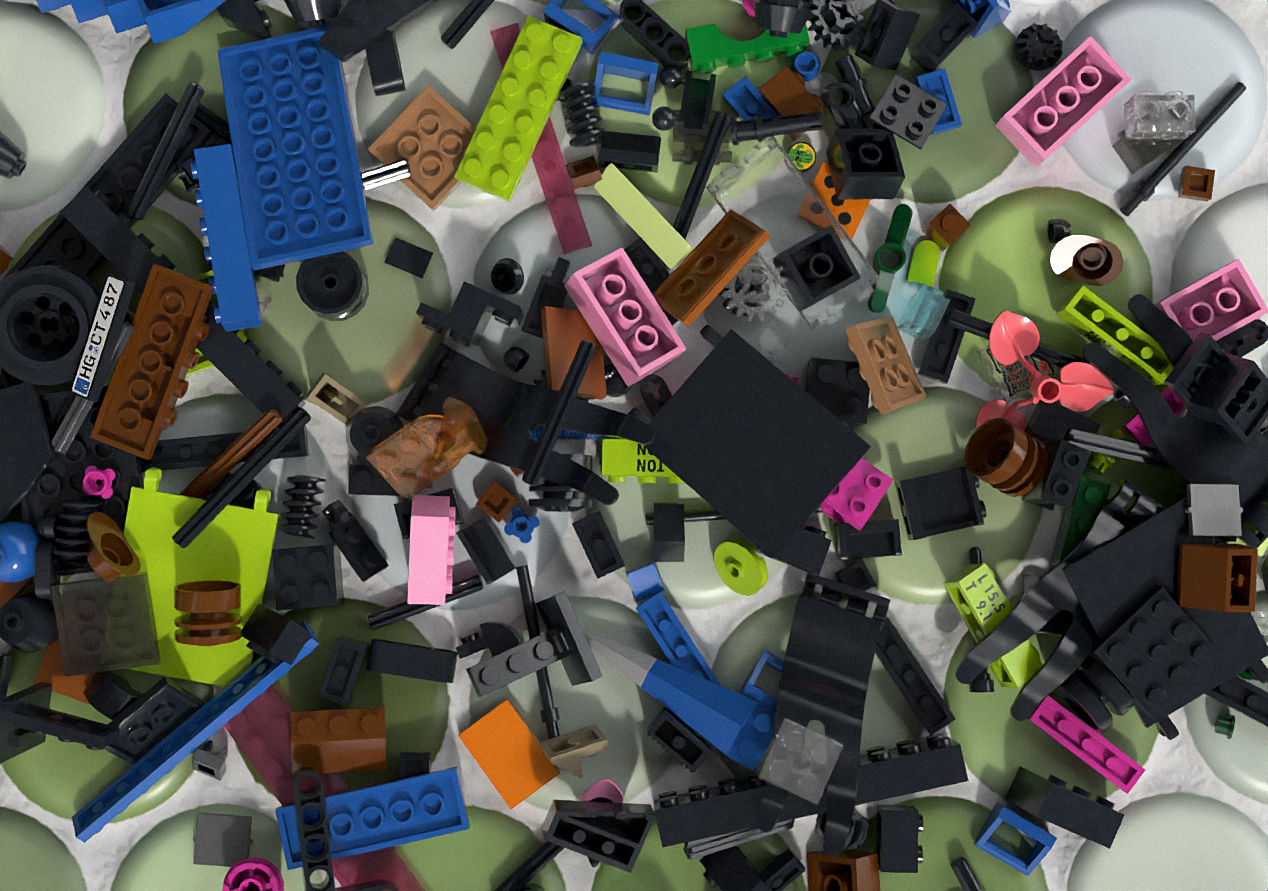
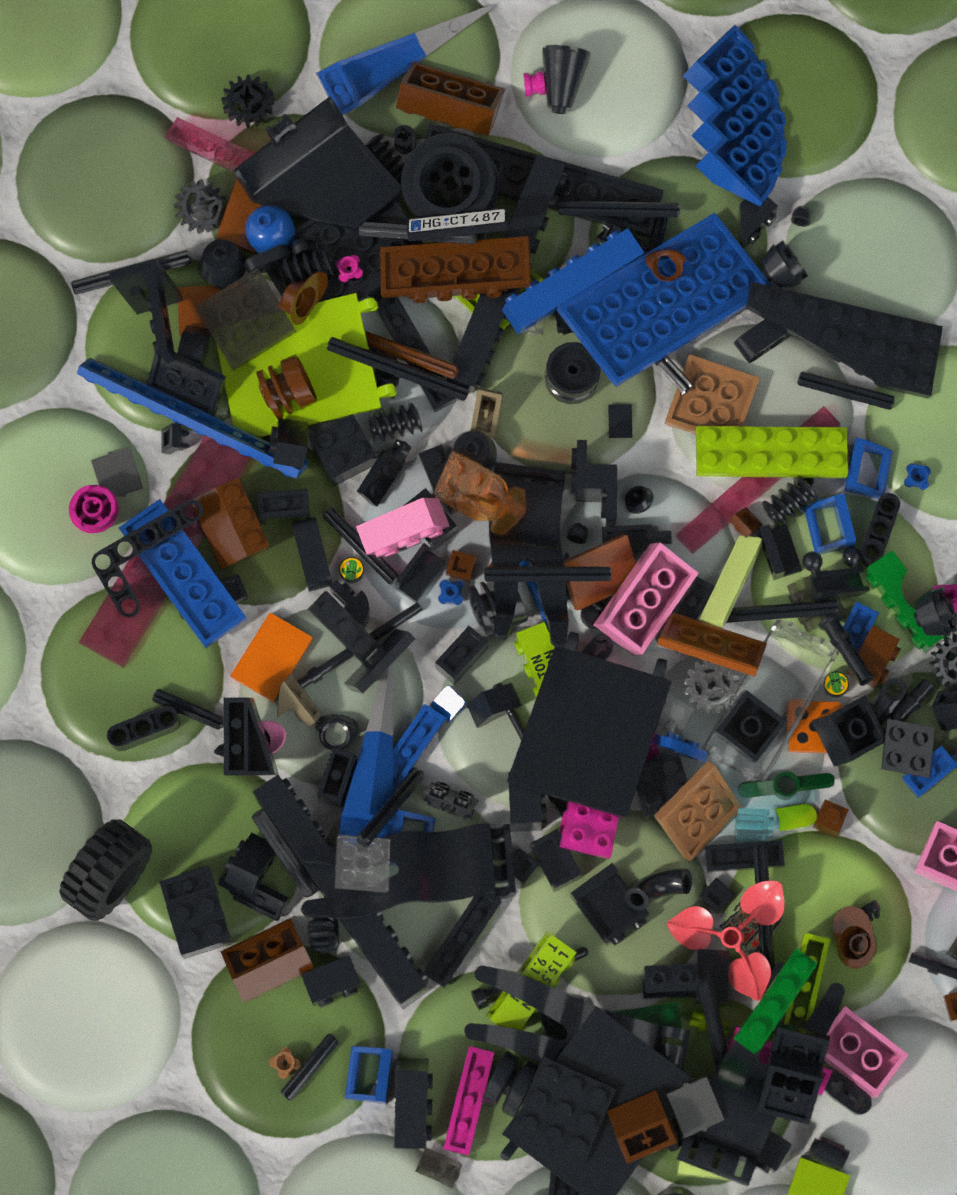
camera: 70 degrees right, 10 degrees down
(250, 111) = (675, 255): none -> reddish brown piece
(448, 623) = (351, 570): none -> tile
(624, 700) = (349, 725): none -> black piece
(740, 566) = (490, 768): lime plate -> none
(744, 700) = (390, 807): none -> black axle
(754, 624) = (441, 792): none -> black hinge
(802, 356) = (687, 748): none -> blue plate
(806, 64) = (910, 657): blue plate -> none
(941, 443) = (658, 885): none -> black cylinder
(974, 384) = (716, 895): none -> black tile
(1006, 457) = (666, 934): reddish brown wheel -> none
(1144, 806) = (439, 1167): none -> clear smoke bracket
(1154, 395) = (775, 1001): none -> green arch

